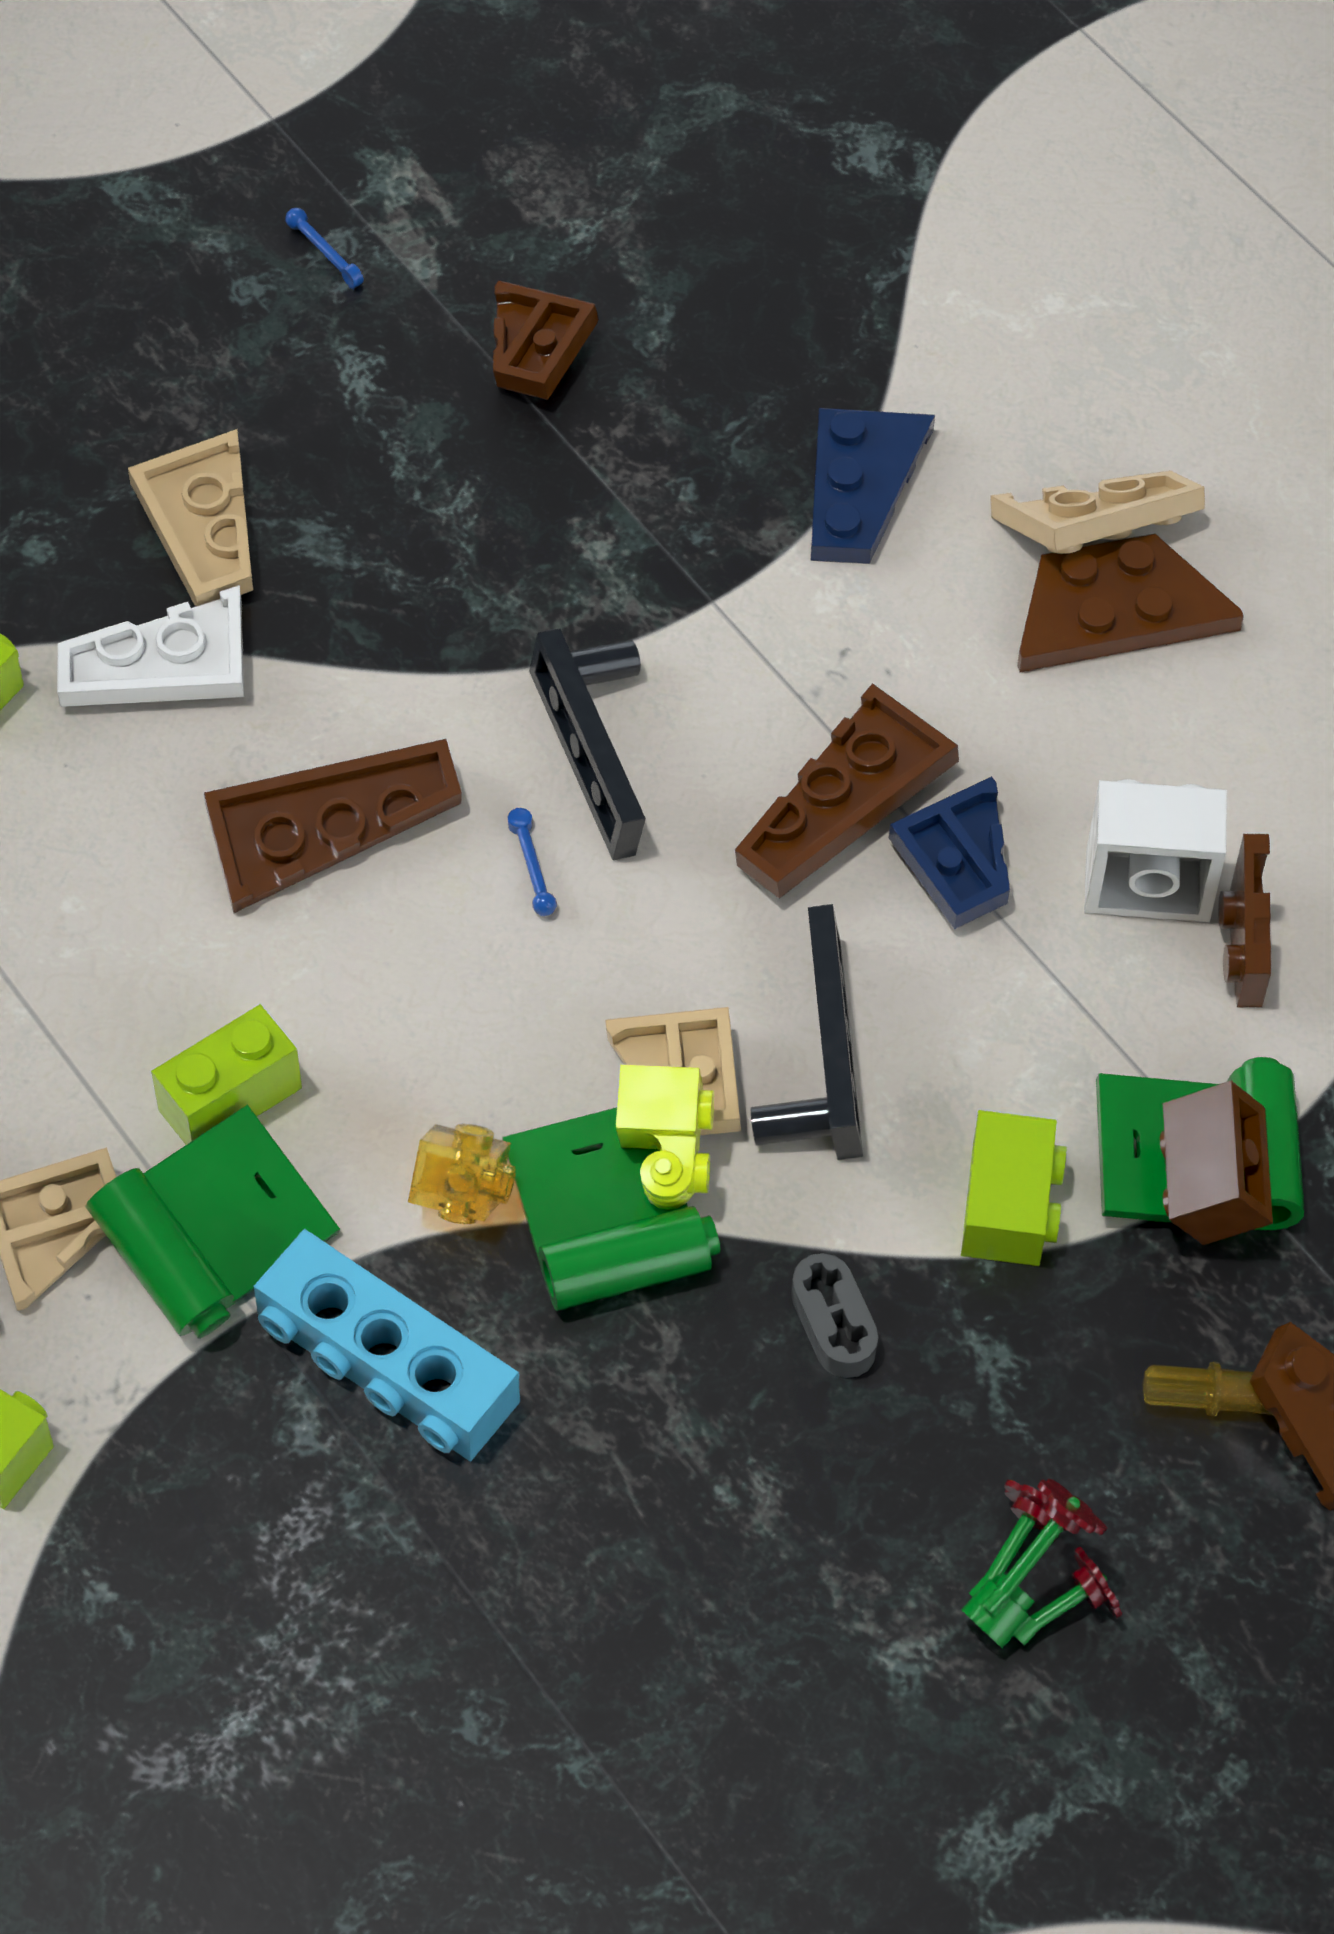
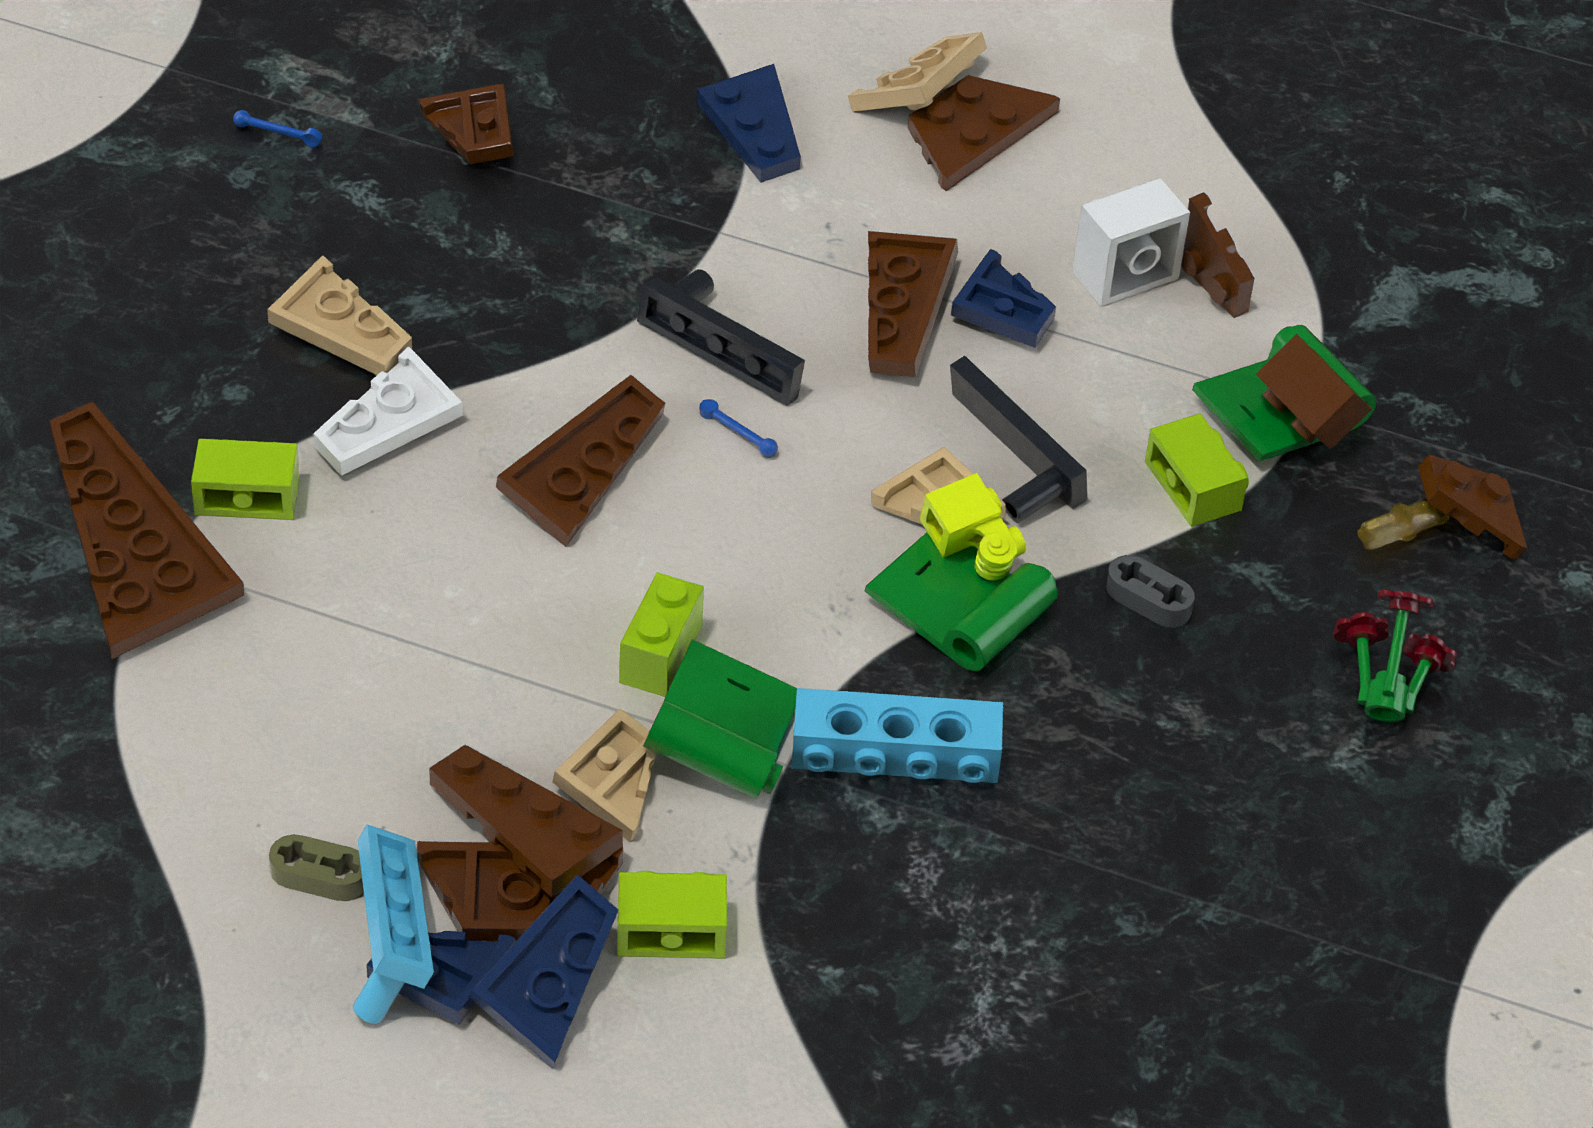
camera: 35 degrees left, 10 degrees down
(462, 1173) = (847, 618): clear yellow brick -> none

